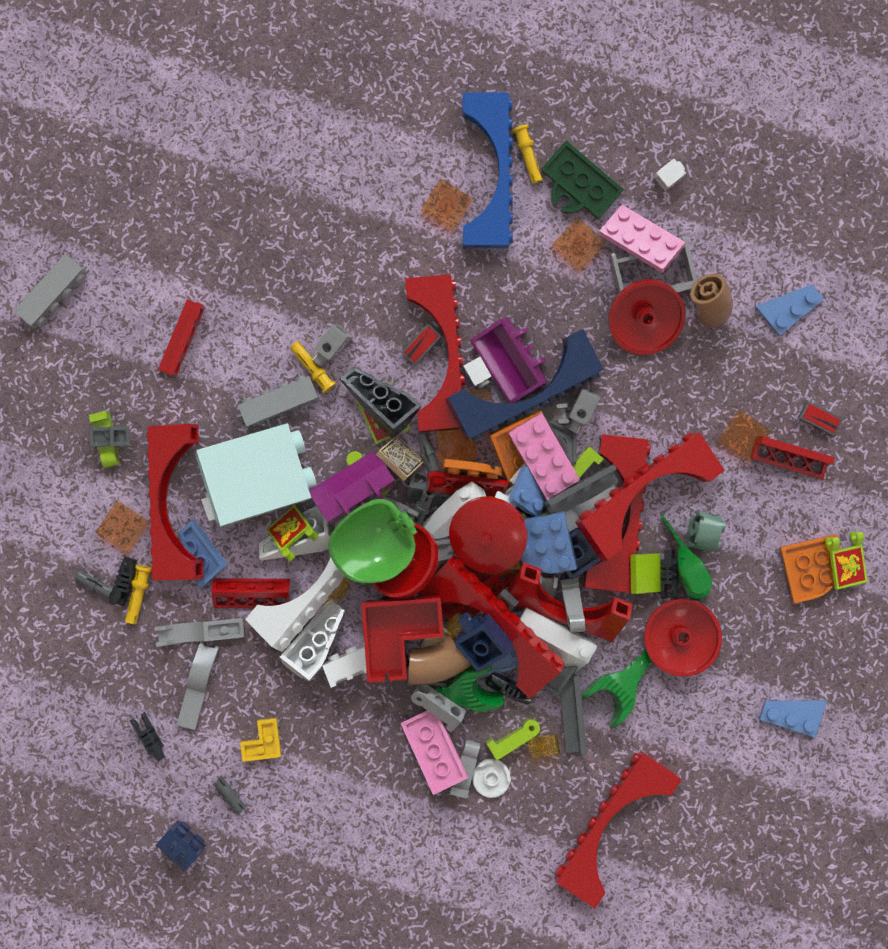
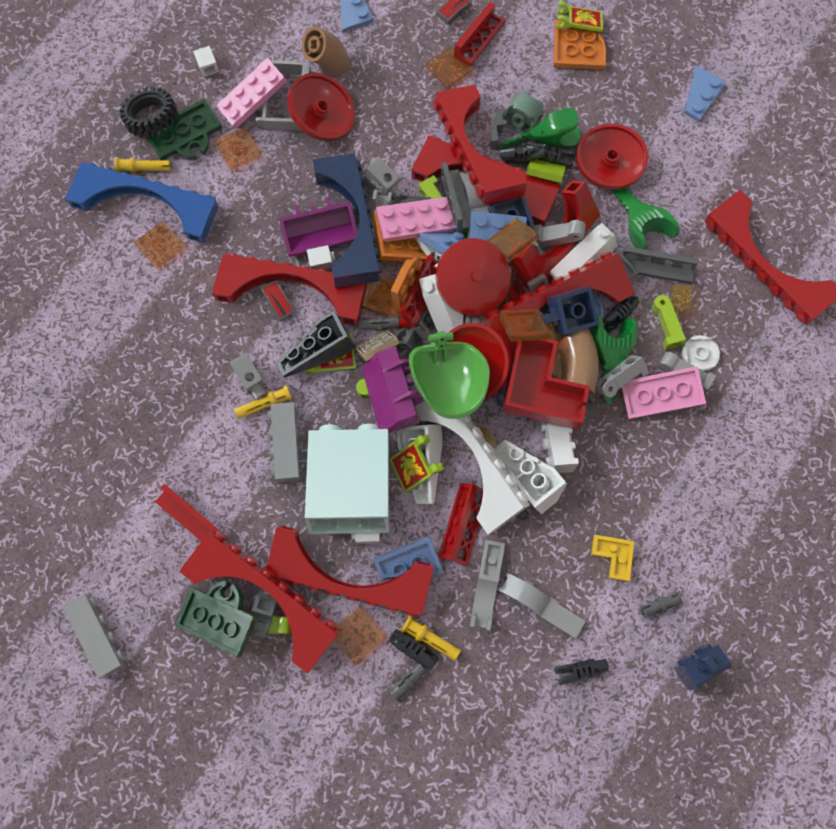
camera: 70 degrees left, 15 degrees down
(95, 397) = (218, 618): none -> plate
(146, 385) = (309, 629): none -> red arch
(449, 599) = (524, 325): none -> clear orange tile
(541, 563) = (514, 238): none -> clear orange tile
(603, 125) = (152, 124): none -> black tyre
(657, 544) = (522, 153): none -> black hinge
(685, 507) = (497, 127): none -> dark grey slope

